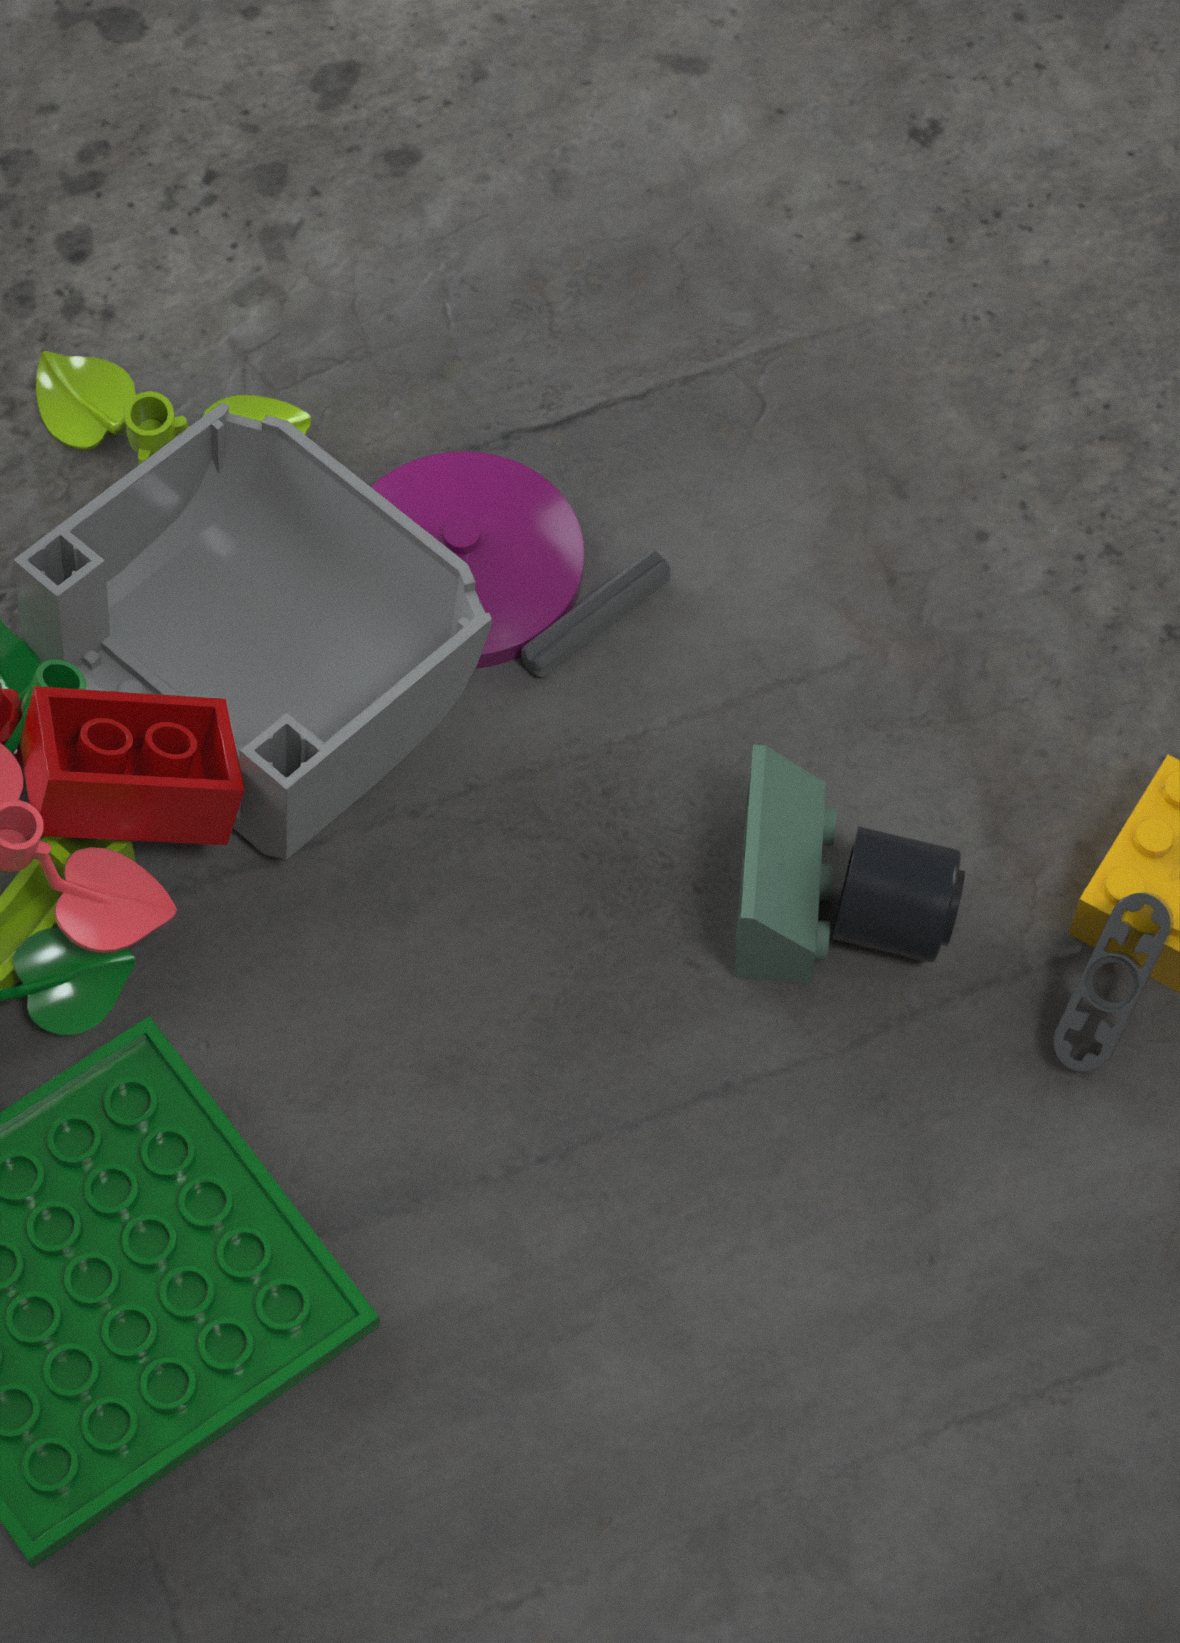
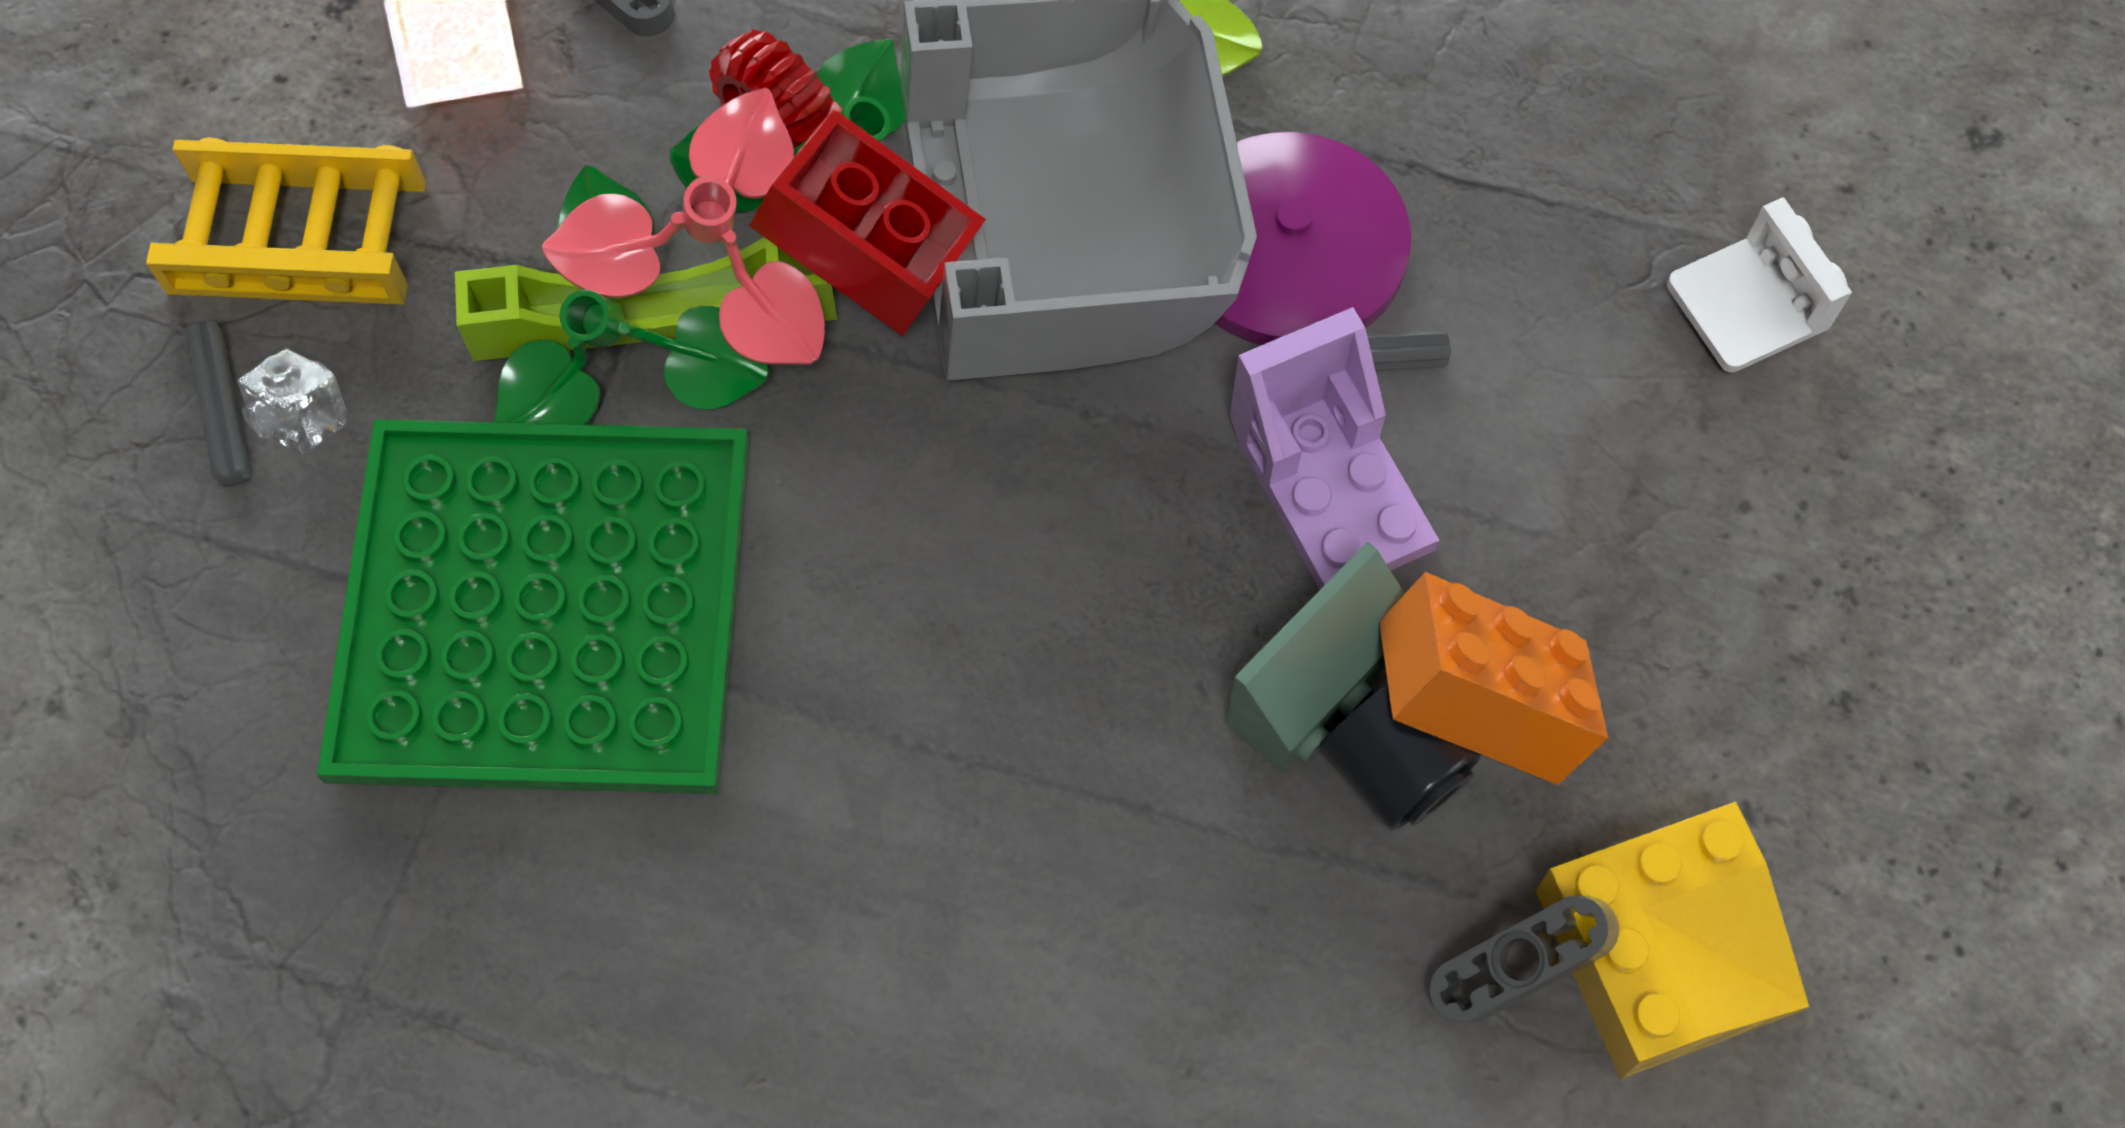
camera: 40 degrees right, 5 degrees up
(624, 711) = (1312, 432): none -> lavender bracket
(864, 357) = (1761, 290): none -> white bracket
(924, 786) = (1491, 679): none -> orange brick

